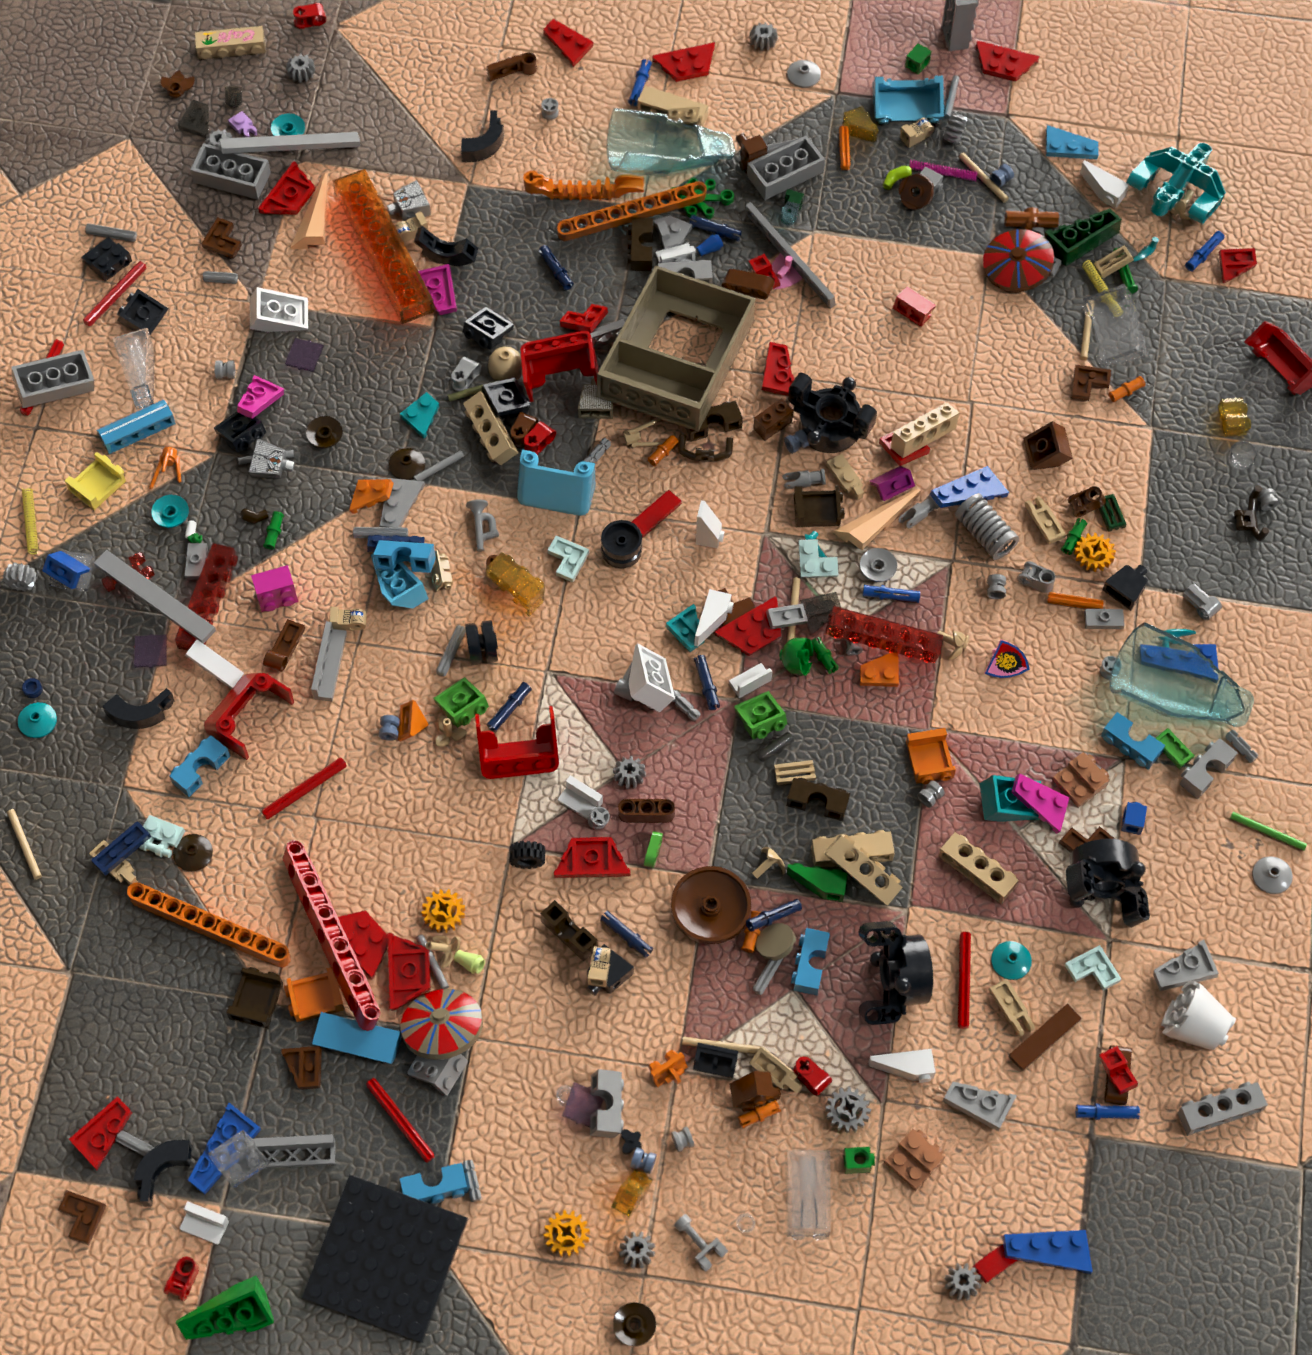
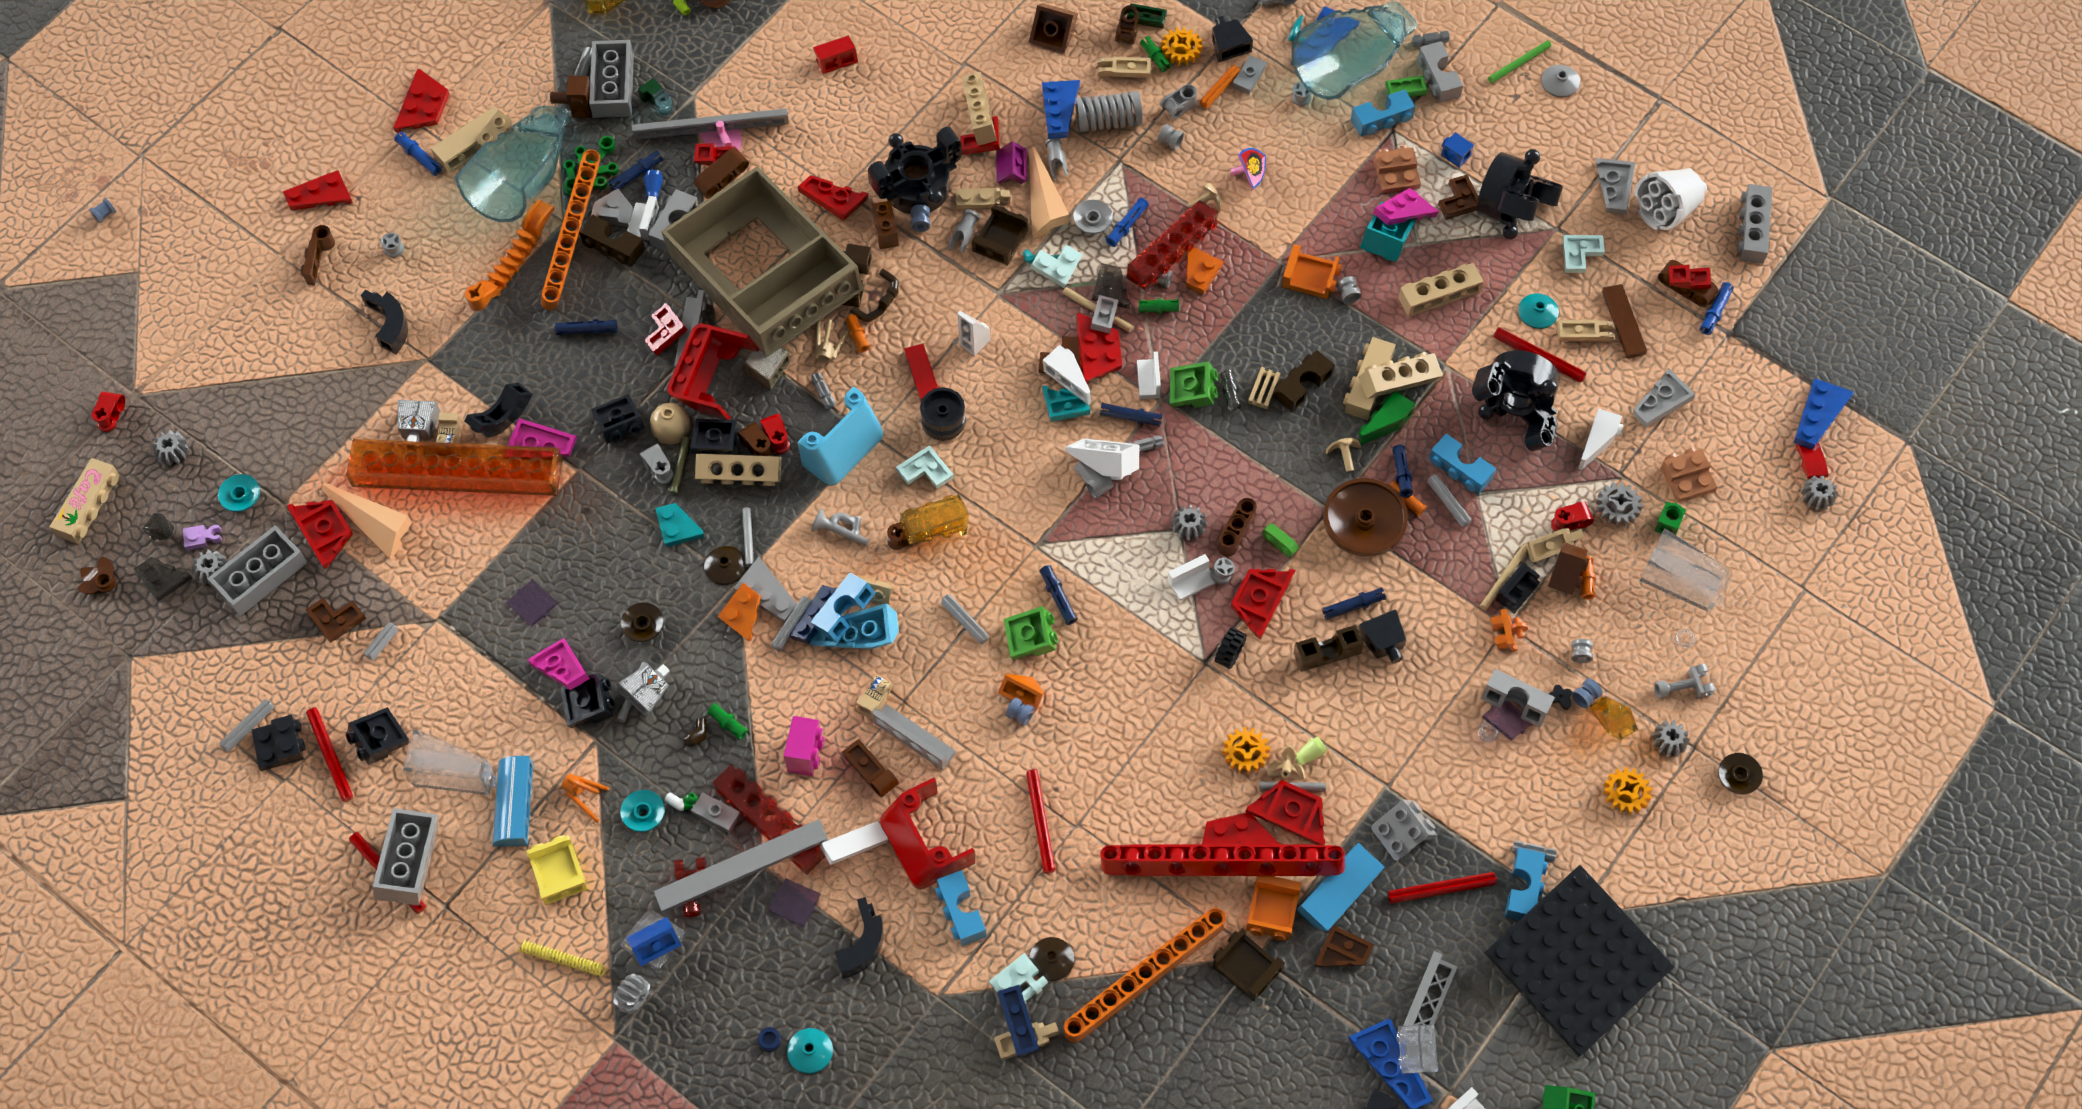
camera: 60 degrees left, 0 degrees up
(225, 369) = (502, 684): light grey wheel -> none
(277, 311) = (464, 603): white slope -> none
(289, 142) = (263, 498): light grey tile -> none
(441, 1024) = (1367, 802): dish -> none
(445, 726) = (1057, 655): tan plant -> none
(482, 642) = (980, 583): black wheel -> none
(518, 757) = (1119, 605): red windscreen -> none
(599, 967) = (1384, 635): tan leg -> none
(763, 36) = (442, 24): light grey gear -> none
(775, 941) = (1430, 482): dark tan tile -> none
(796, 656) = (1149, 326): green cylinder -> none
(803, 73) = (507, 15): light grey dish -> none
(844, 147) = (619, 23): orange axle -> none

